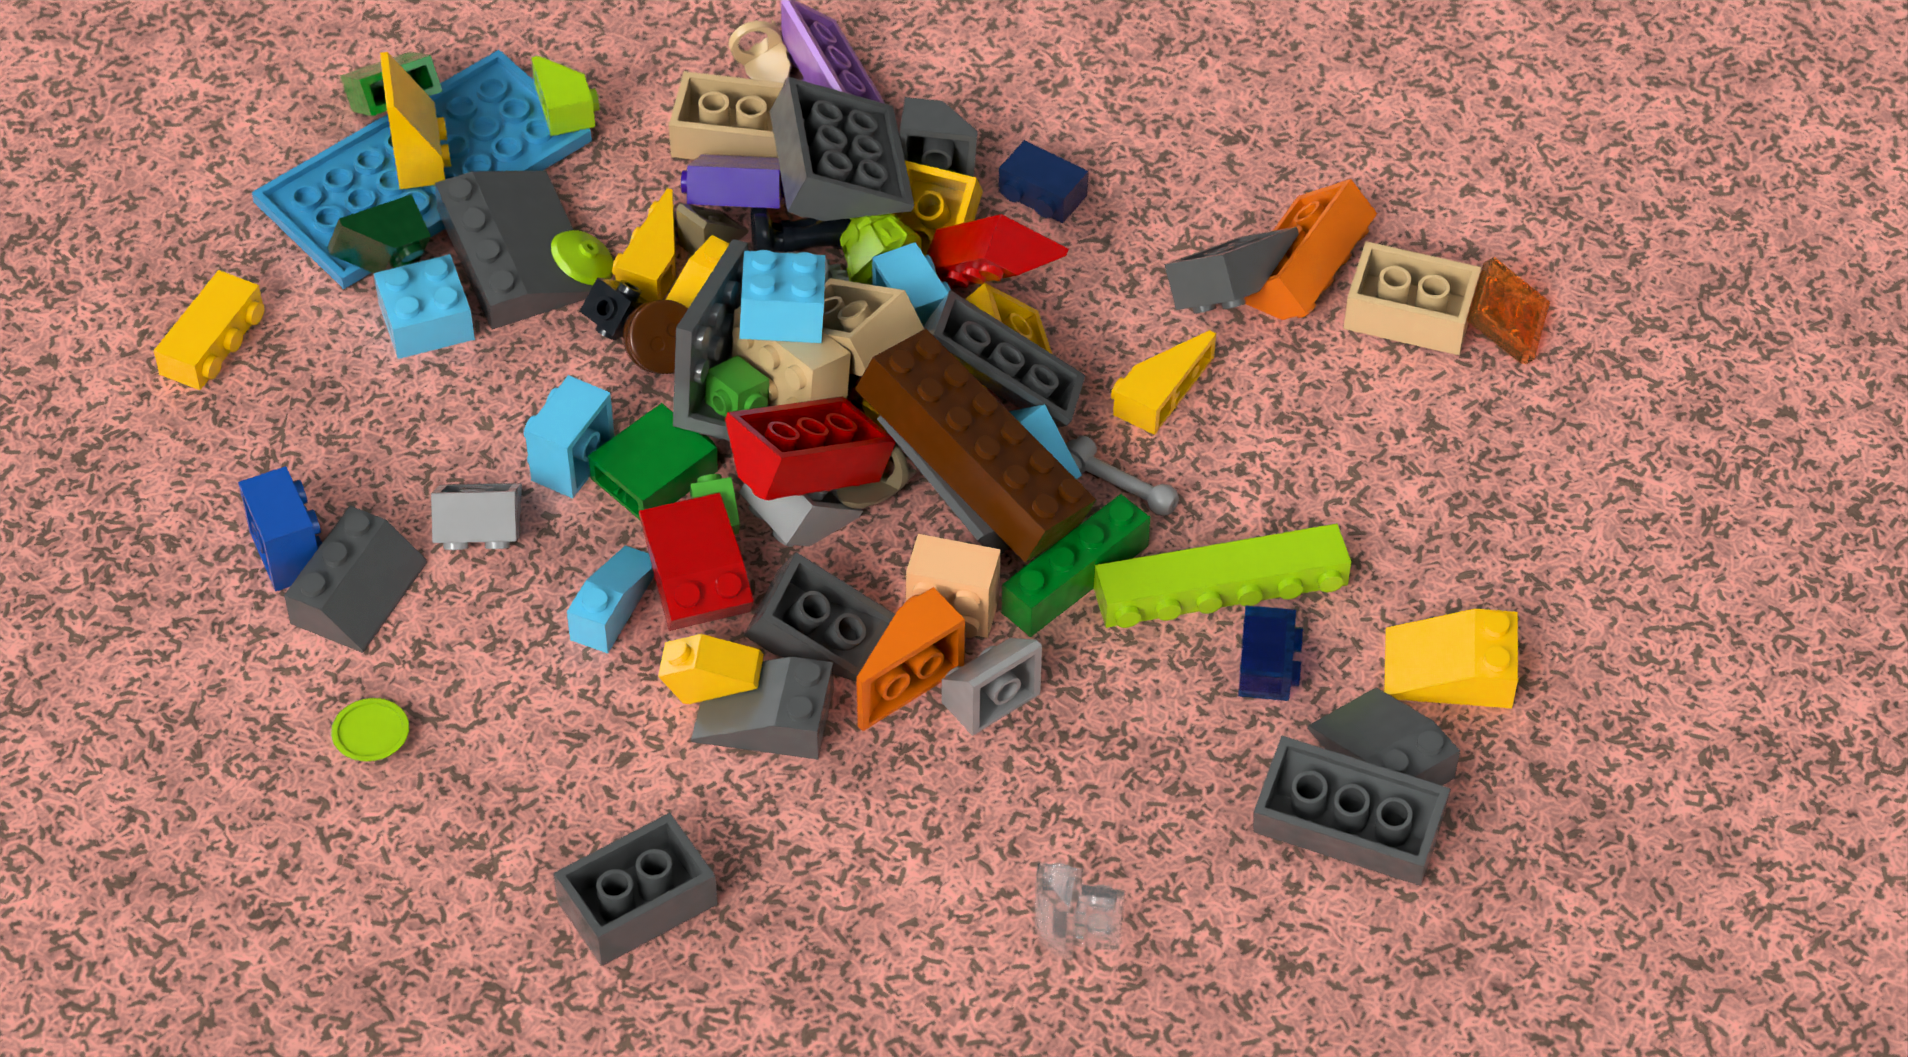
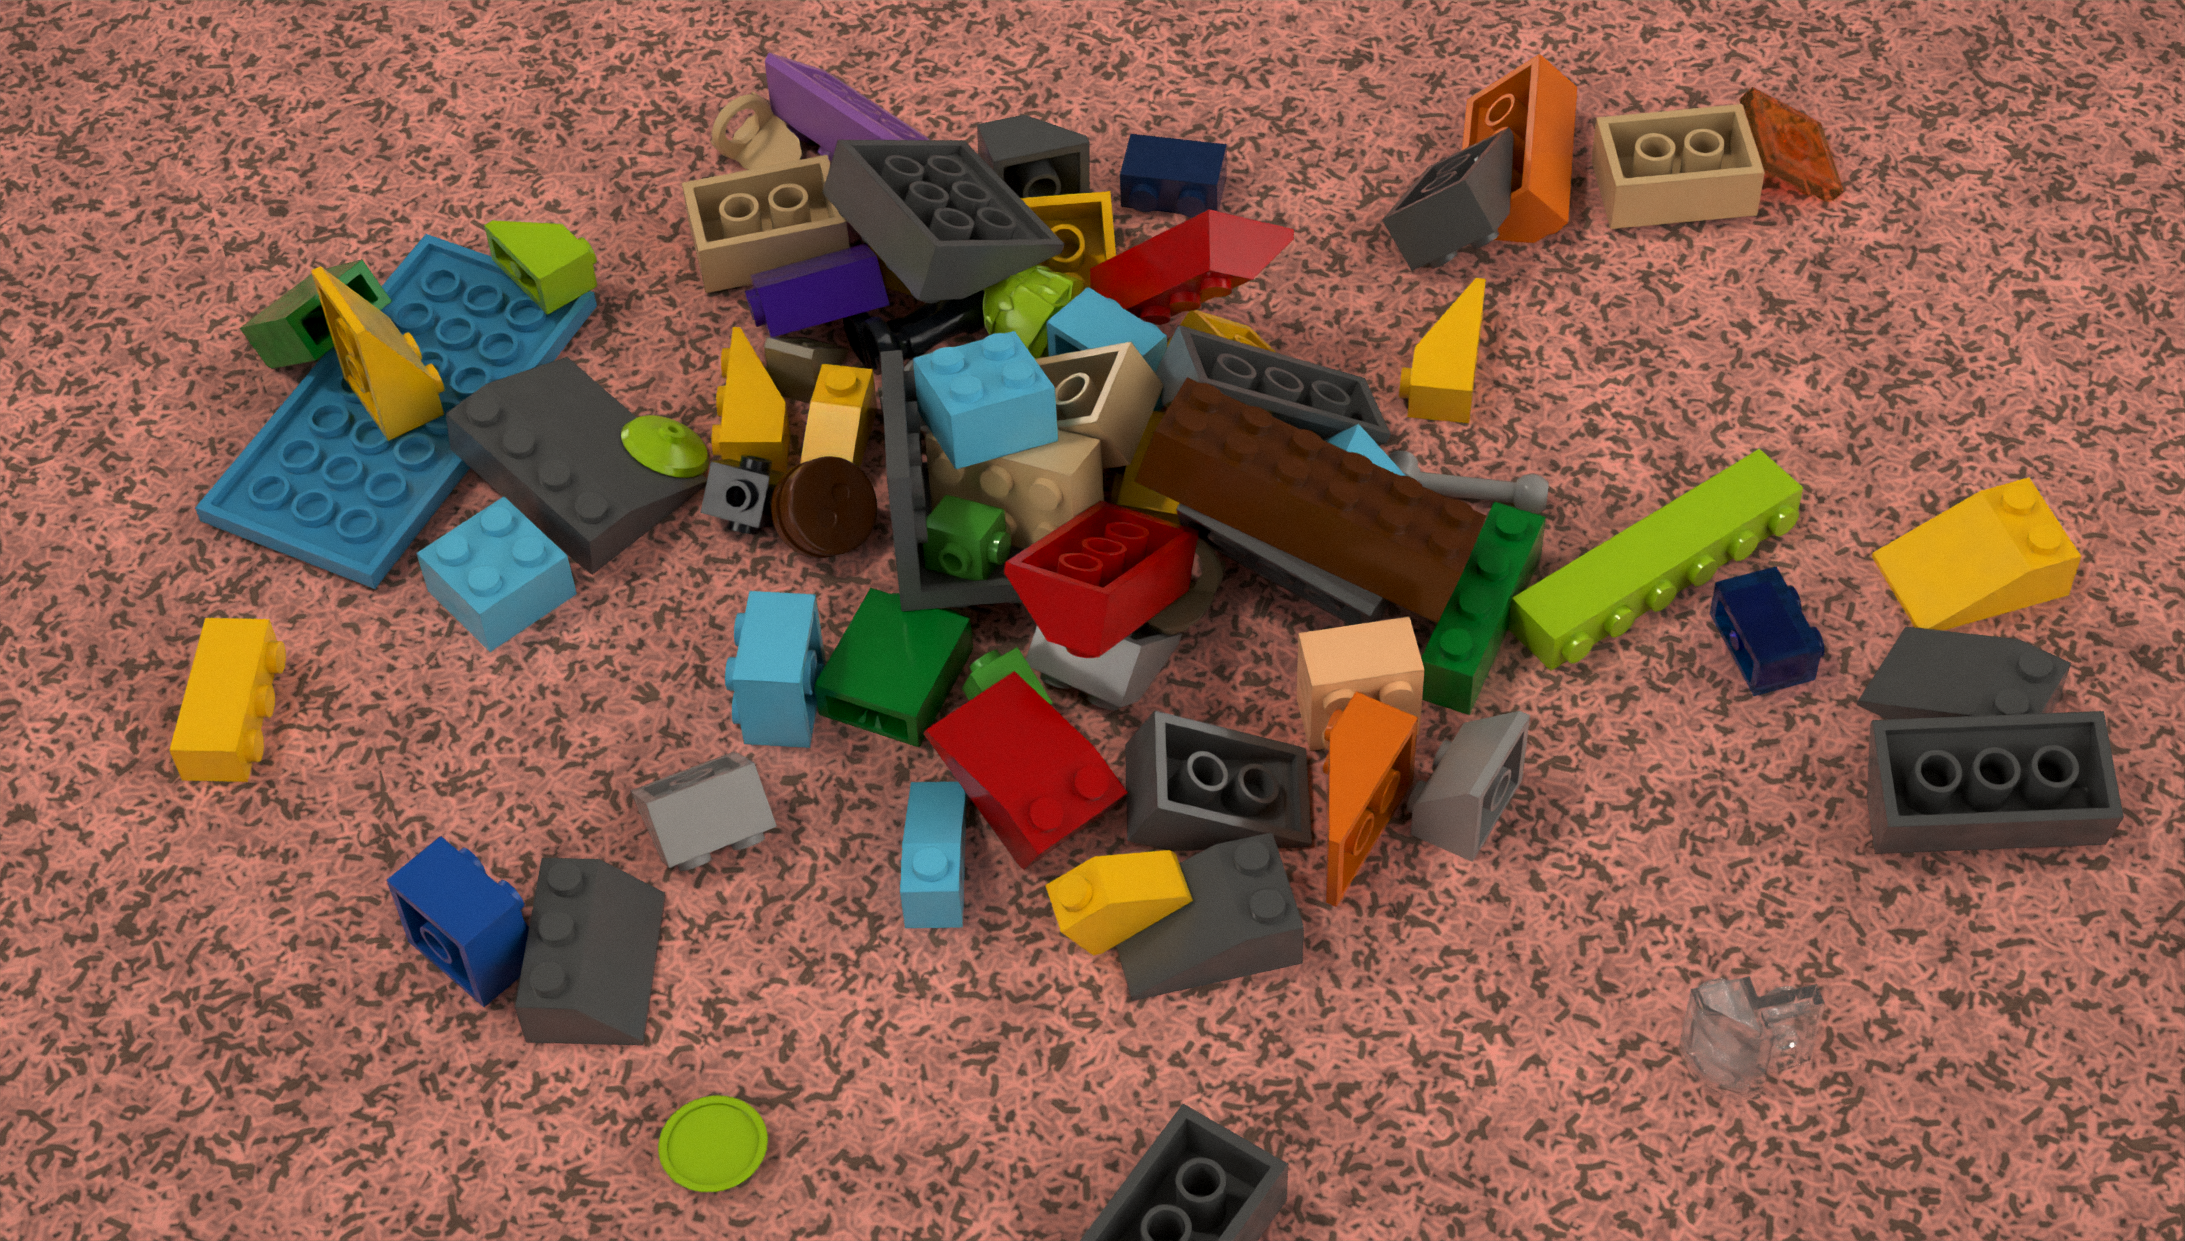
camera: 20 degrees left, 0 degrees up
(381, 236) = (410, 503): dark green slope -> none

